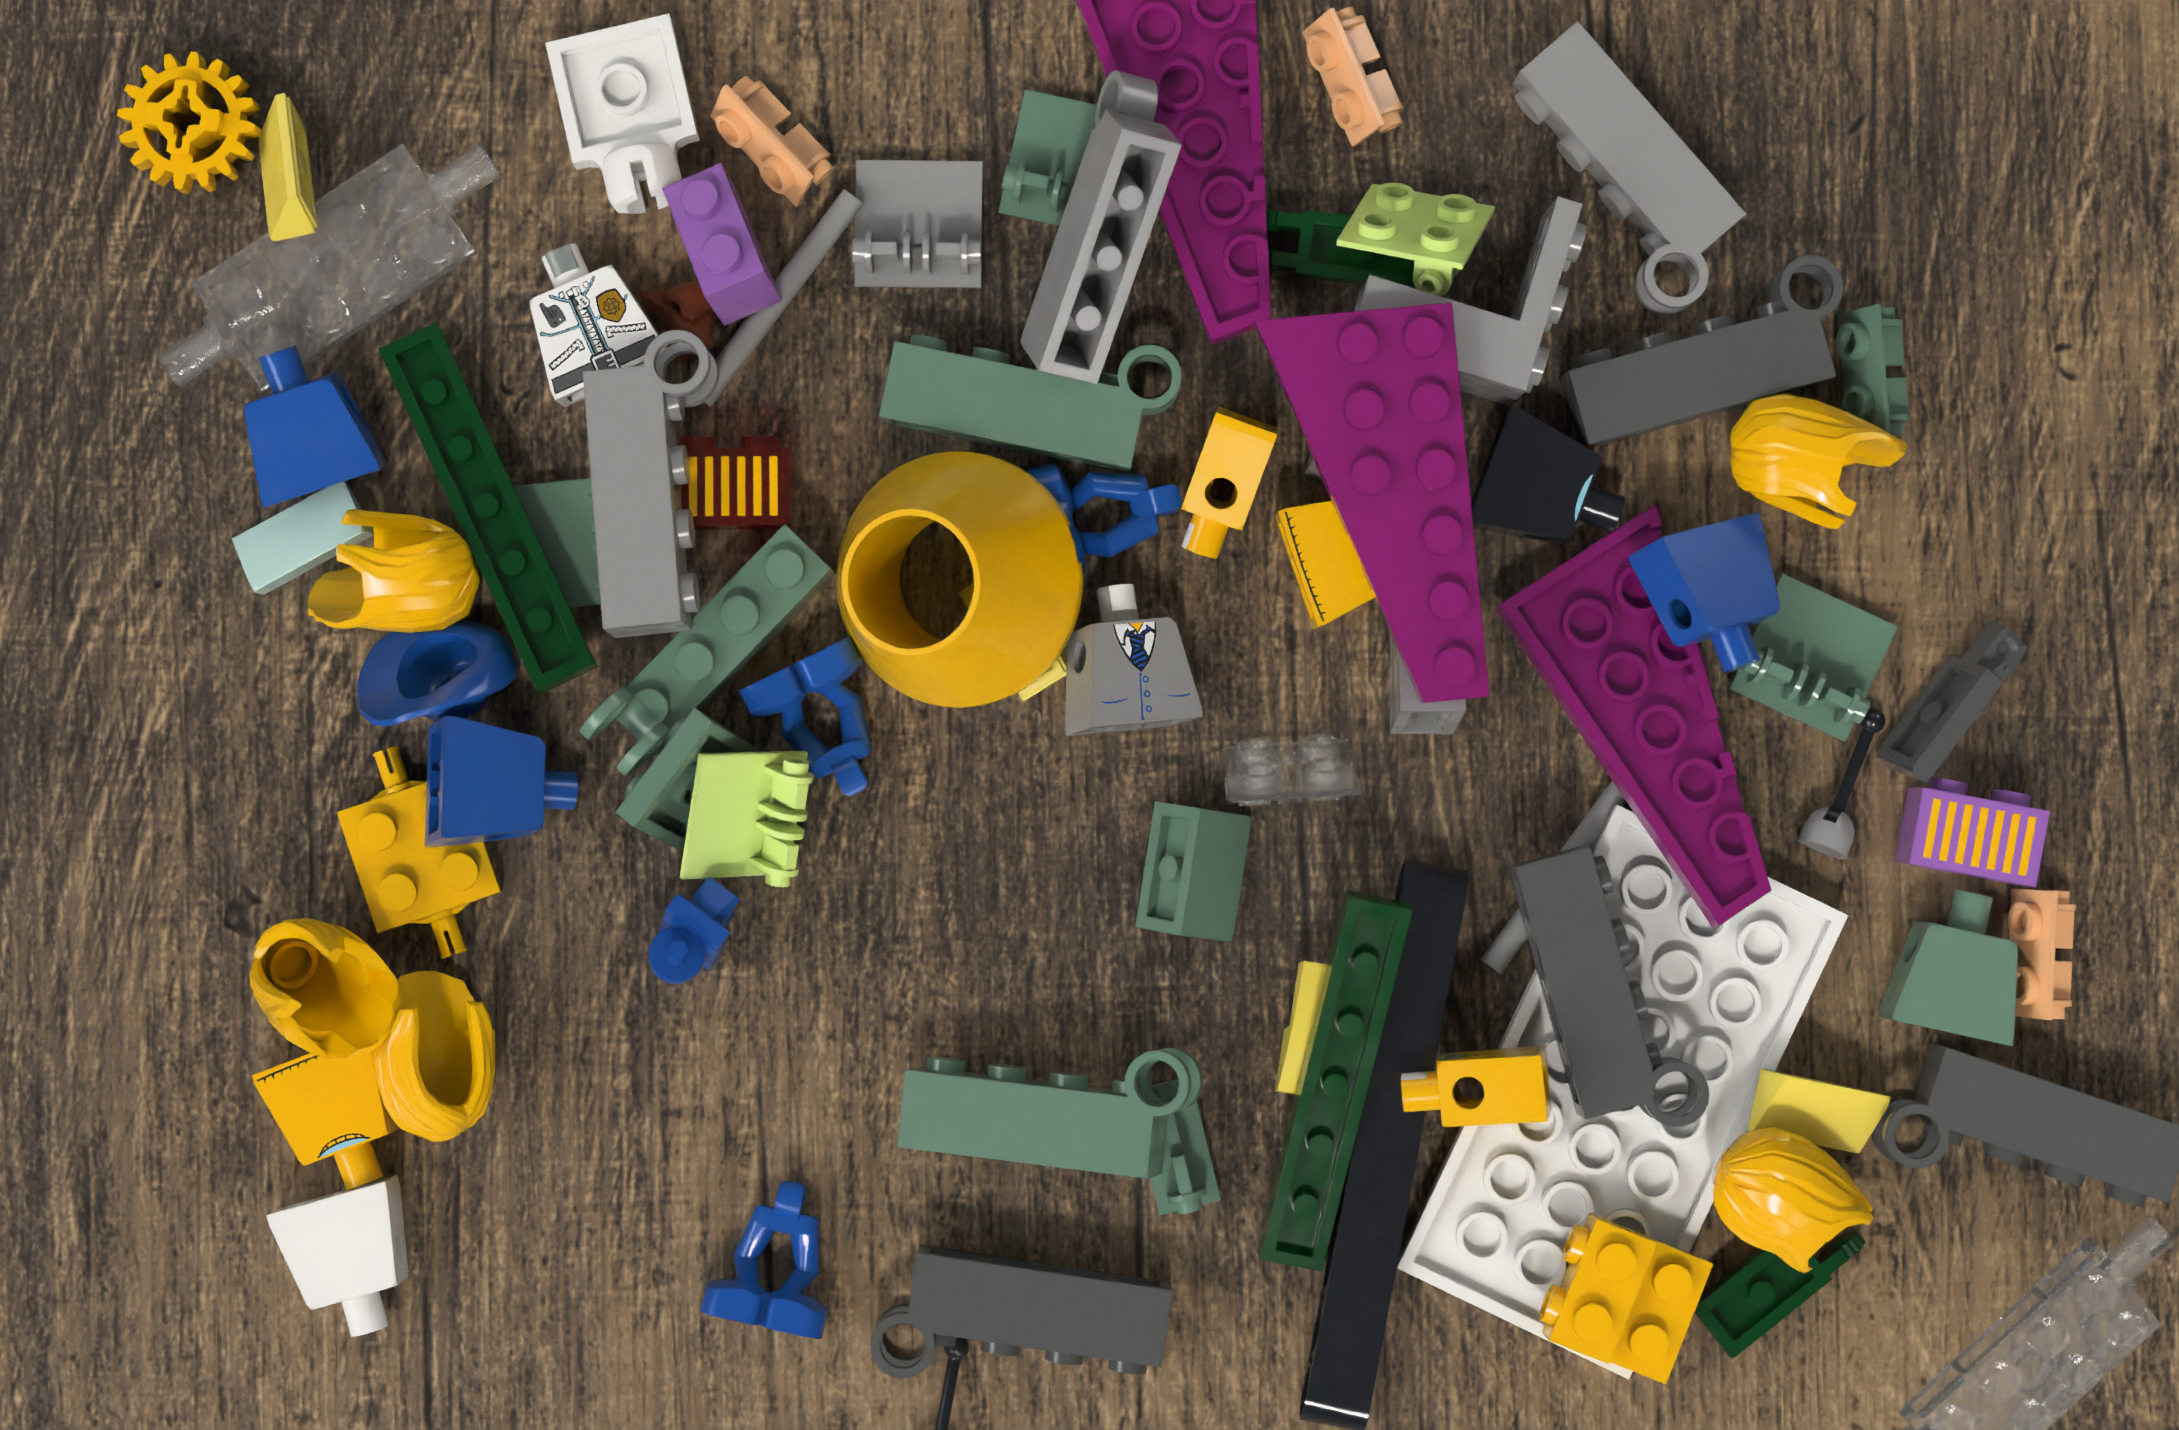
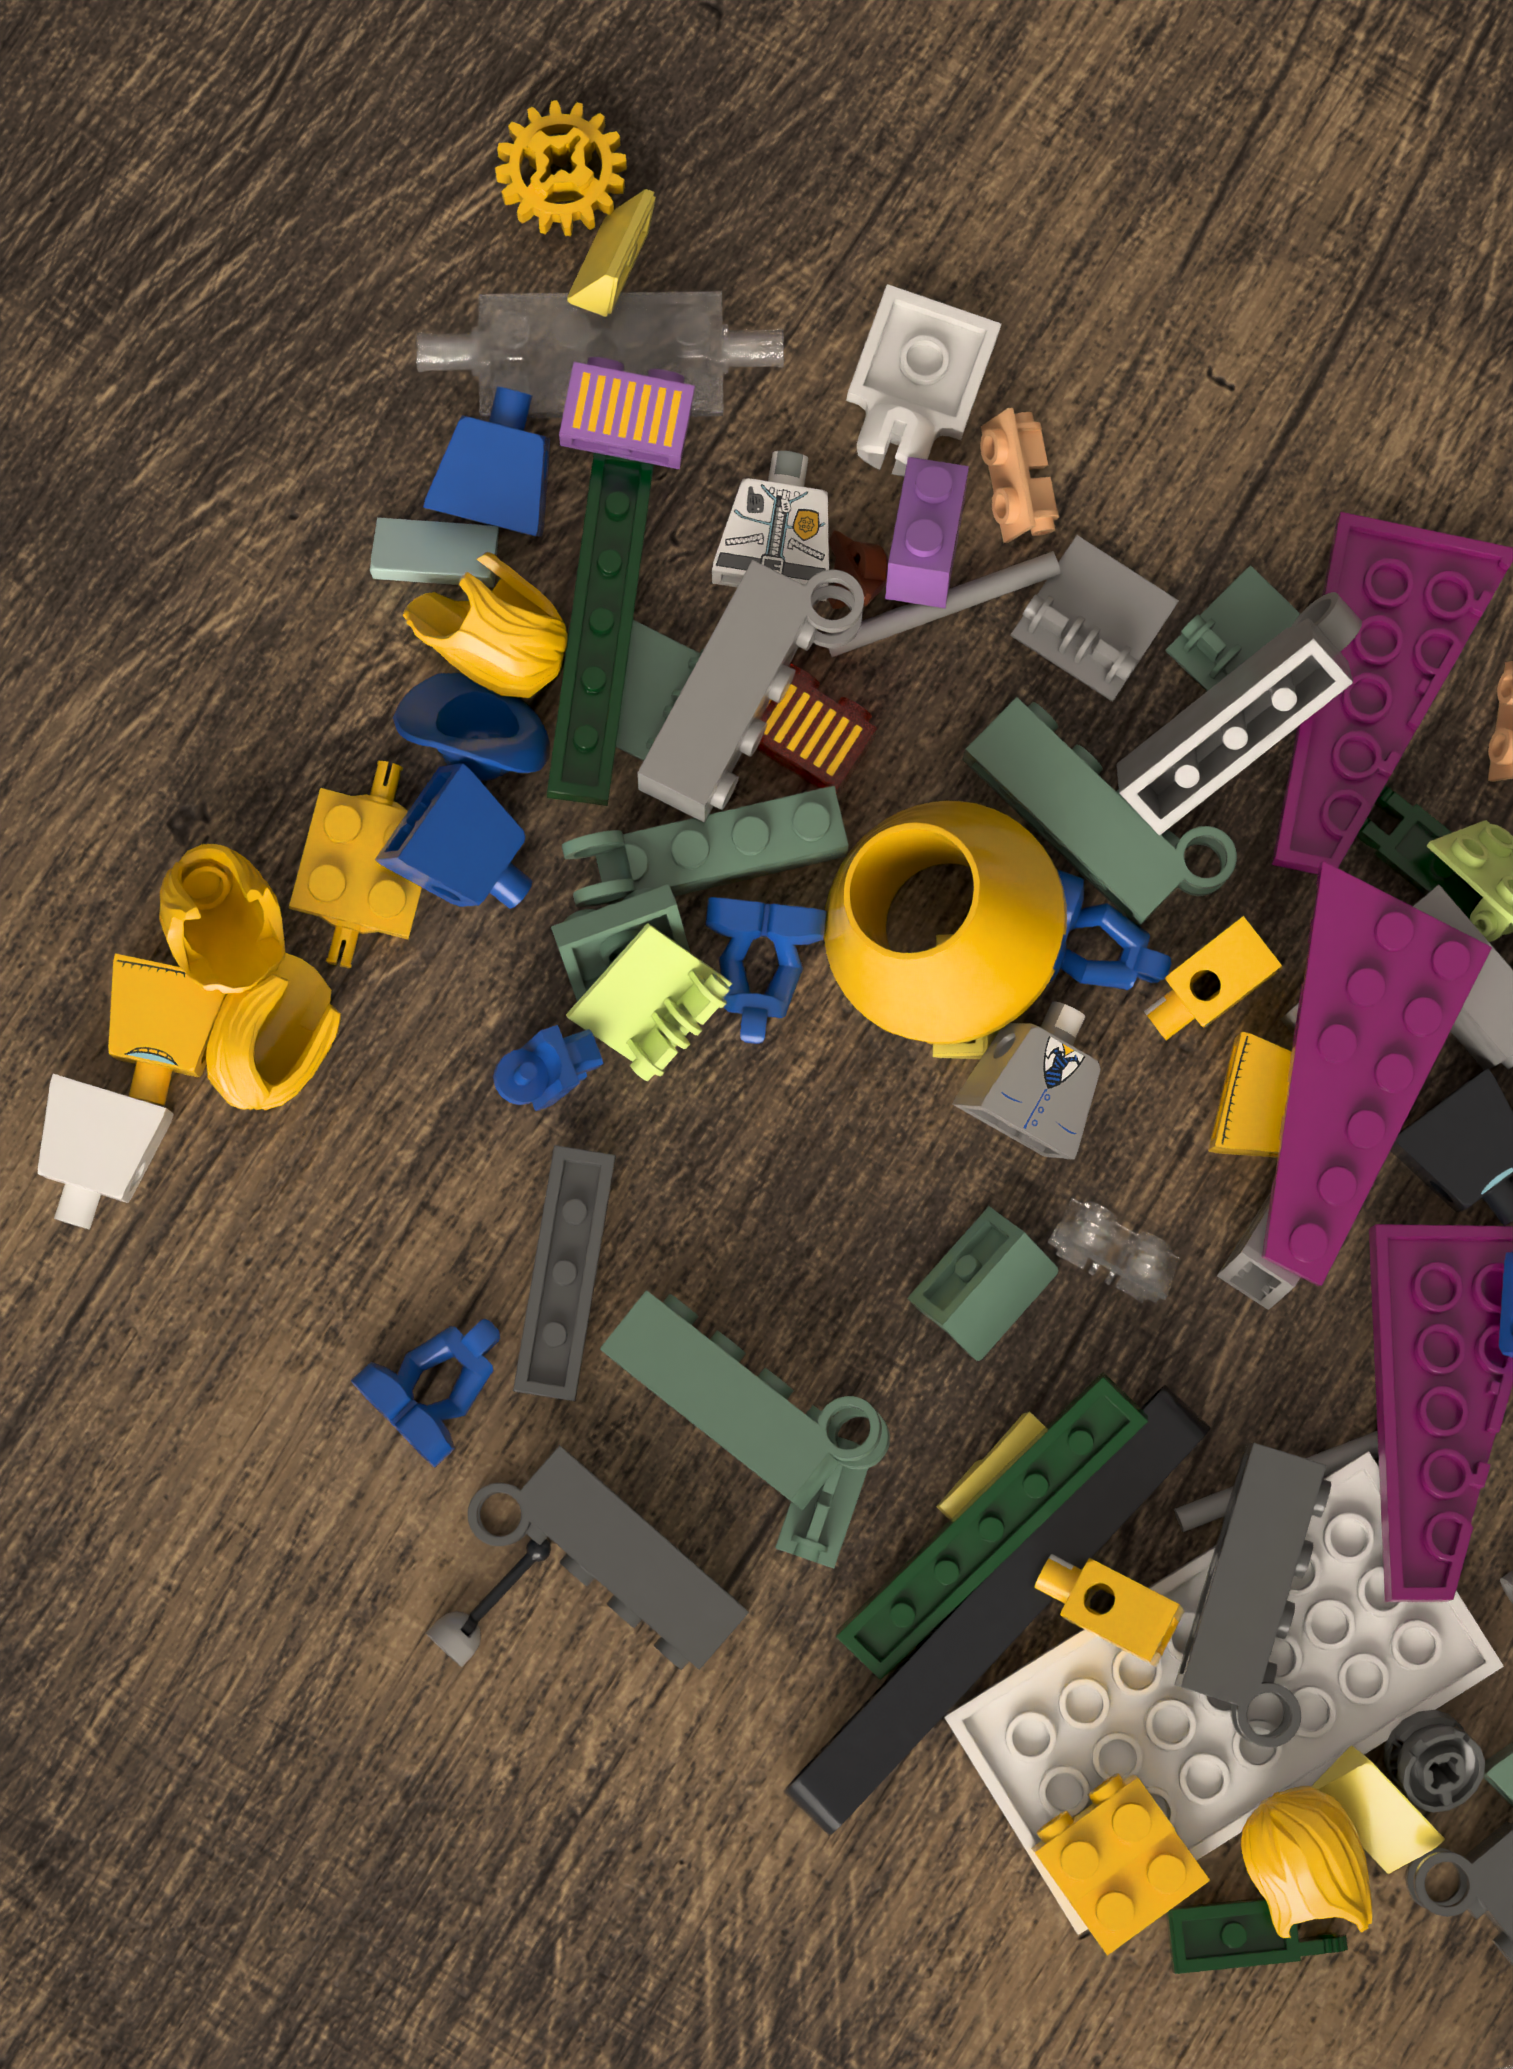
camera: 30 degrees right, 5 degrees down
(388, 308) = (627, 412): none -> medium lavender brick
(825, 1097) = (564, 1273): none -> dark grey plate
(1841, 1035) = (1434, 1742): none -> dark grey wheel

